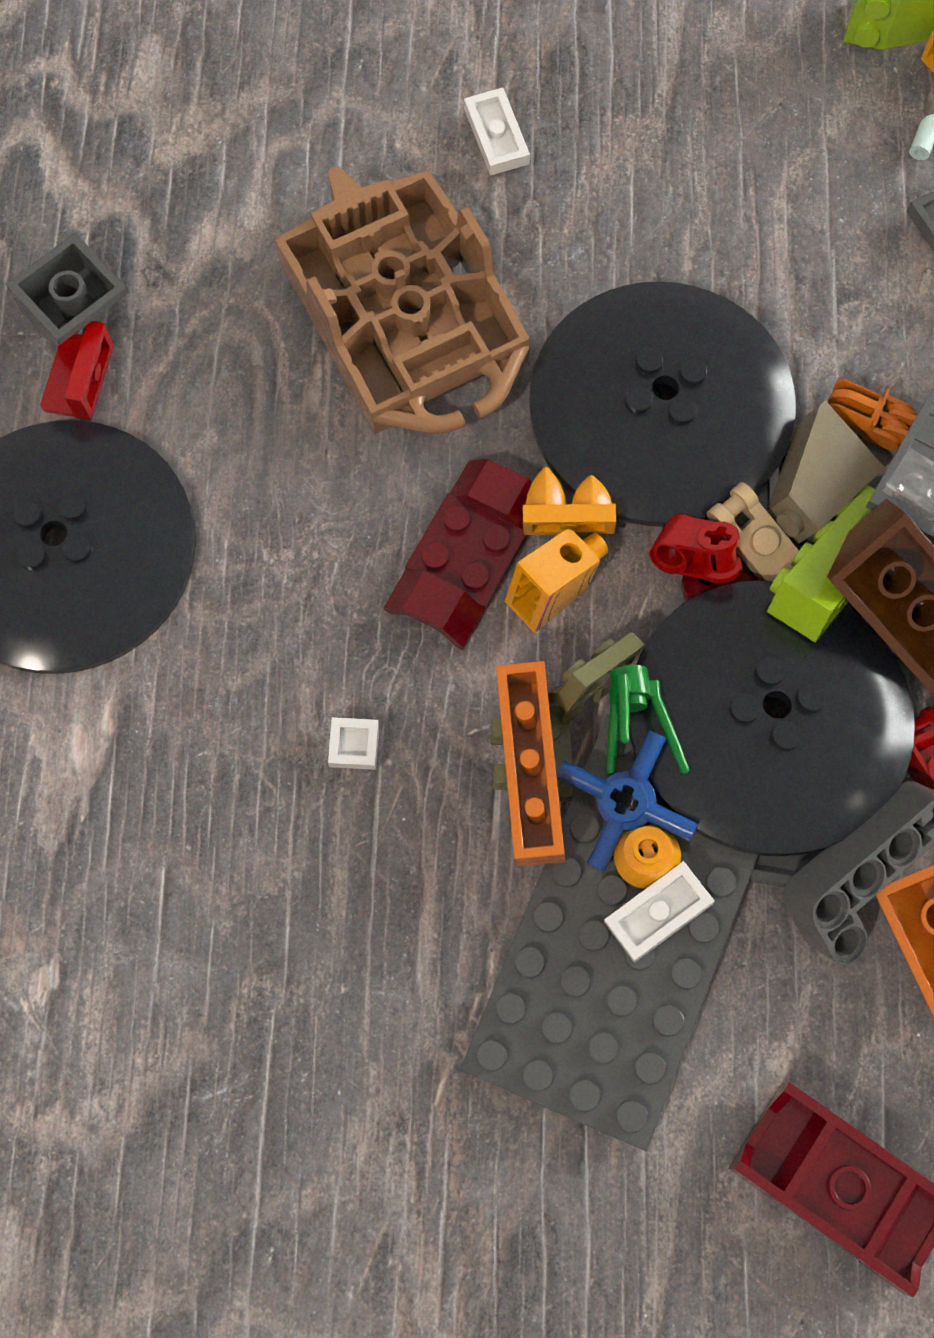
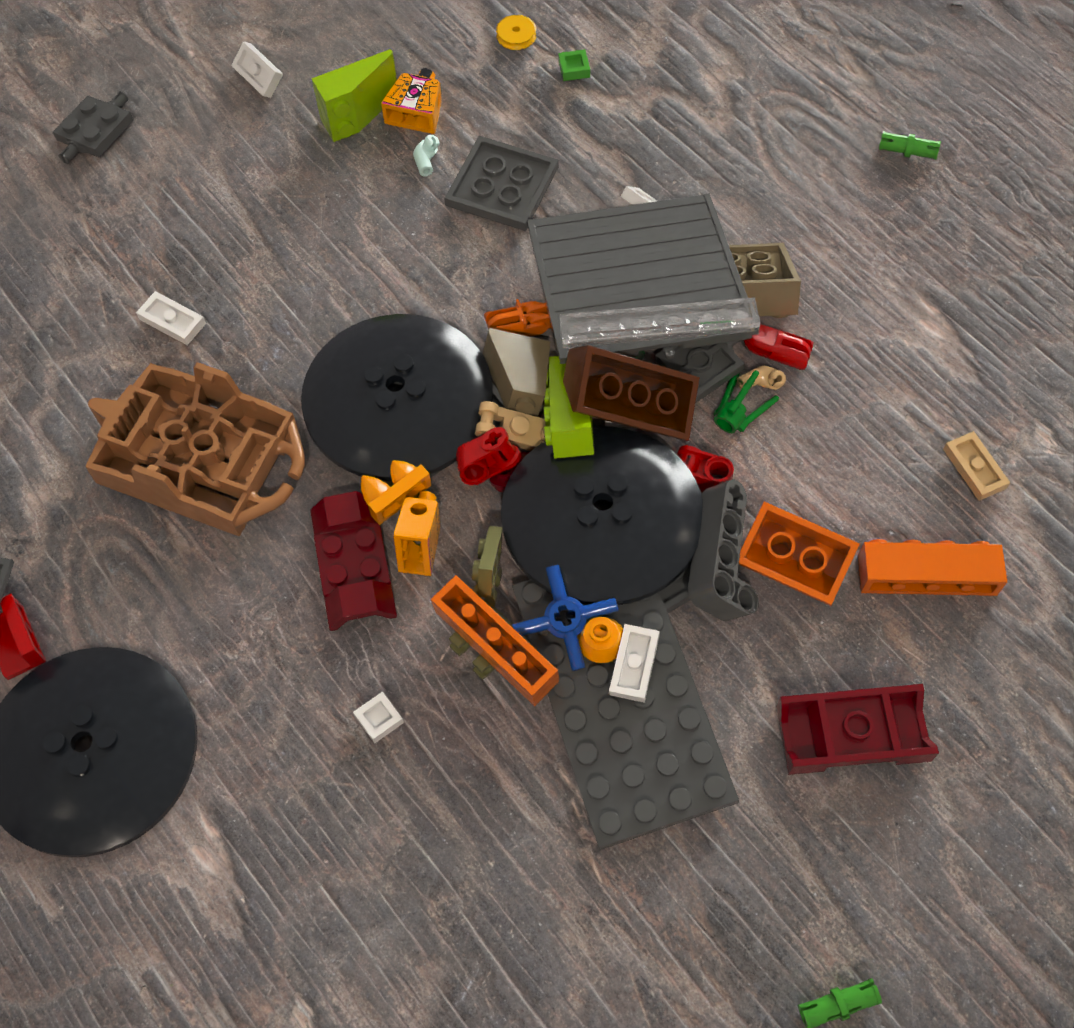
camera: 40 degrees left, 10 degrees down
(630, 694) = (518, 558): green plant -> none

